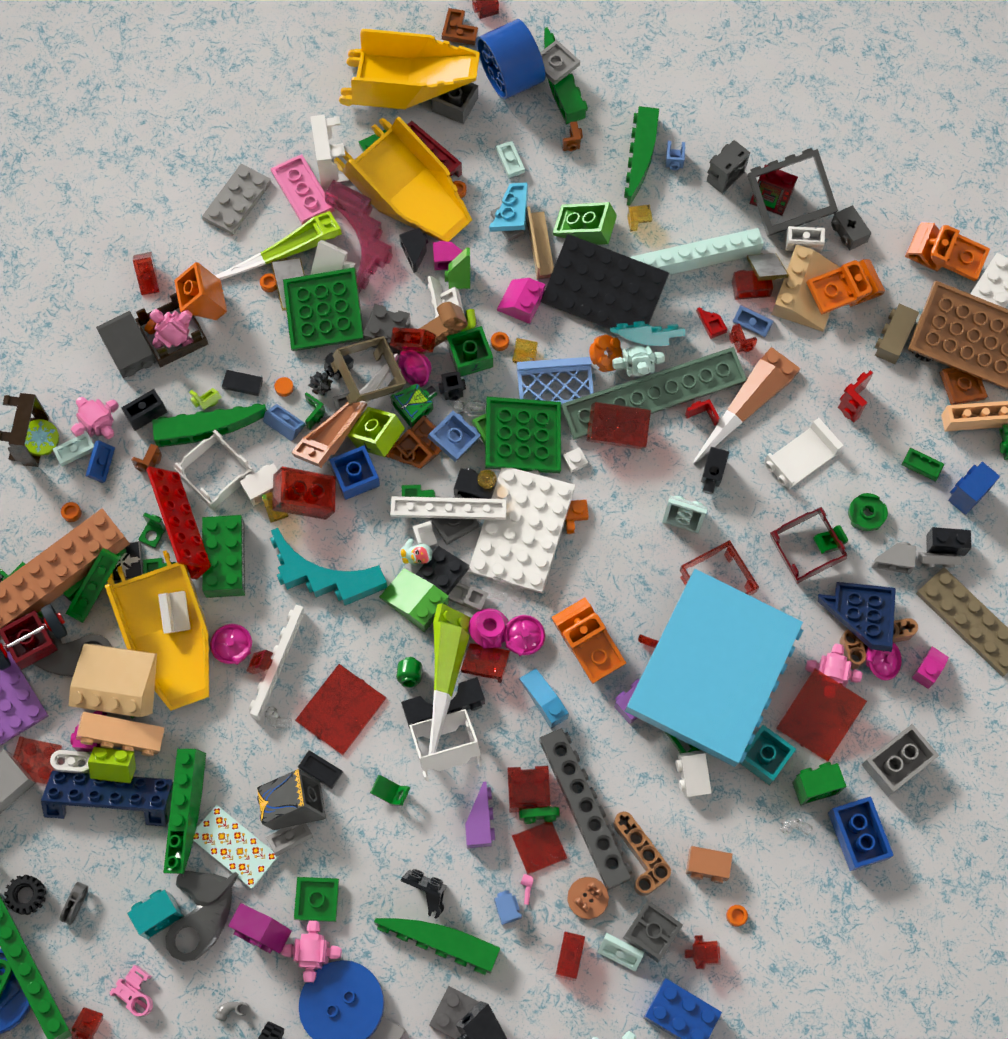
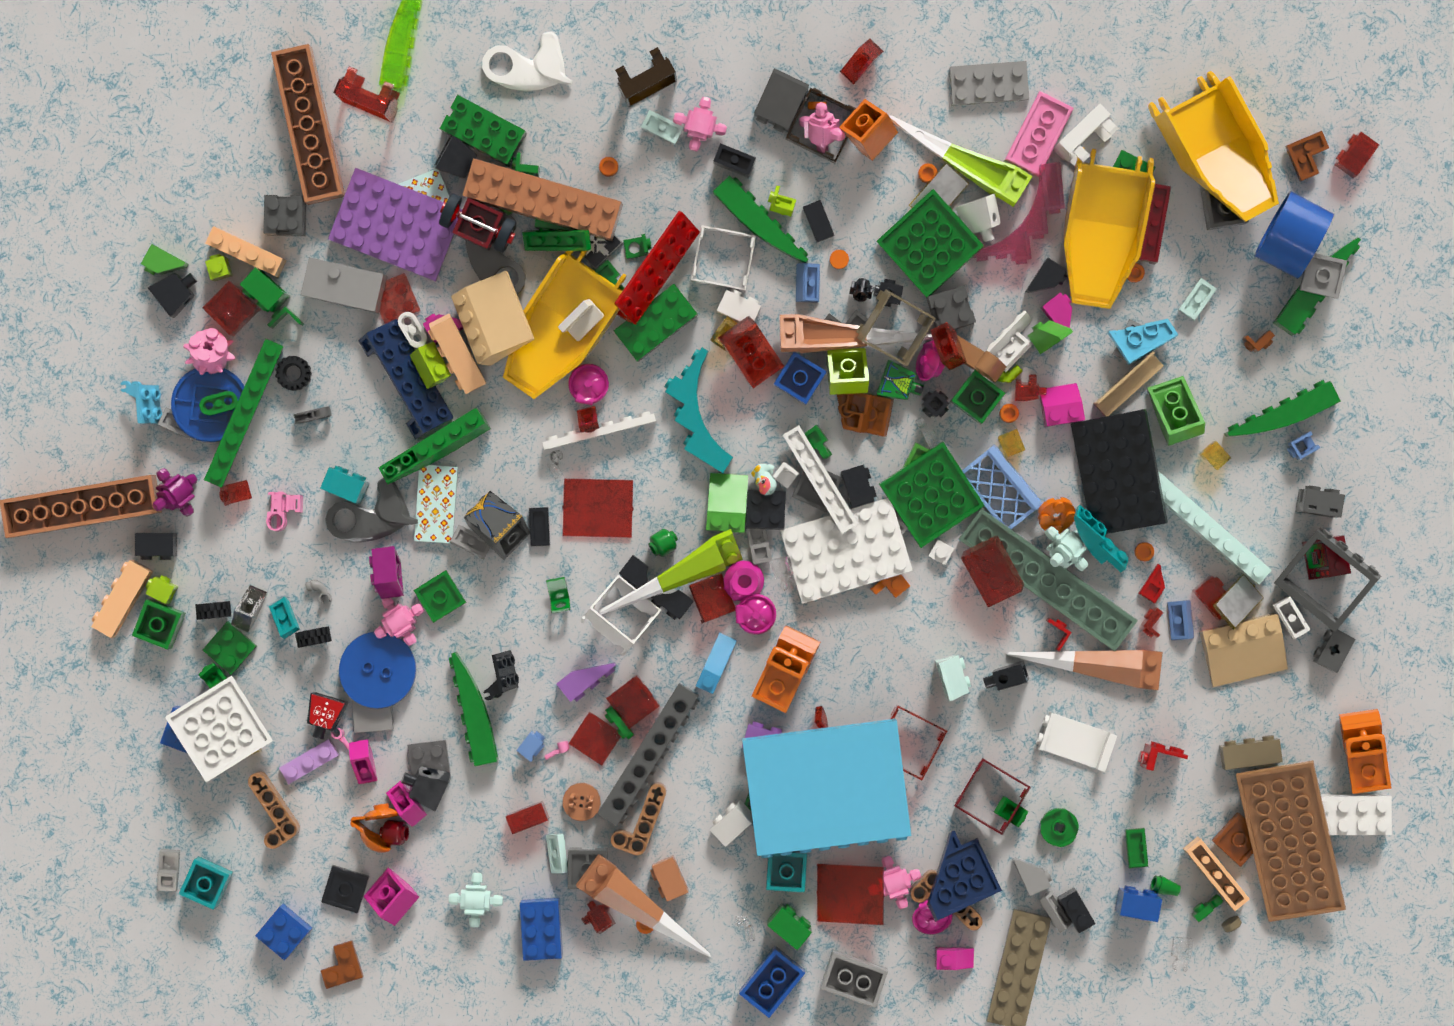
camera: 60 degrees right, 20 degrees up
(41, 437) = (655, 95): lime tile -> none
(100, 461) = (666, 158): blue plate -> none
(152, 457) = (699, 198): dark orange bracket -> none
(318, 413) = (831, 308): green bracket -> none
(454, 436) = (889, 438): medium blue plate -> none
(487, 479) = (866, 494): clear yellow plate -> none
(490, 312) = (1029, 390): none -> clear red piece
(680, 313) = (1144, 551): none -> orange tile
(688, 915) = (614, 889): none -> nougat plate
(847, 285) = (1264, 683): orange piece -> none
(965, 463) = (1164, 886): none -> green cone

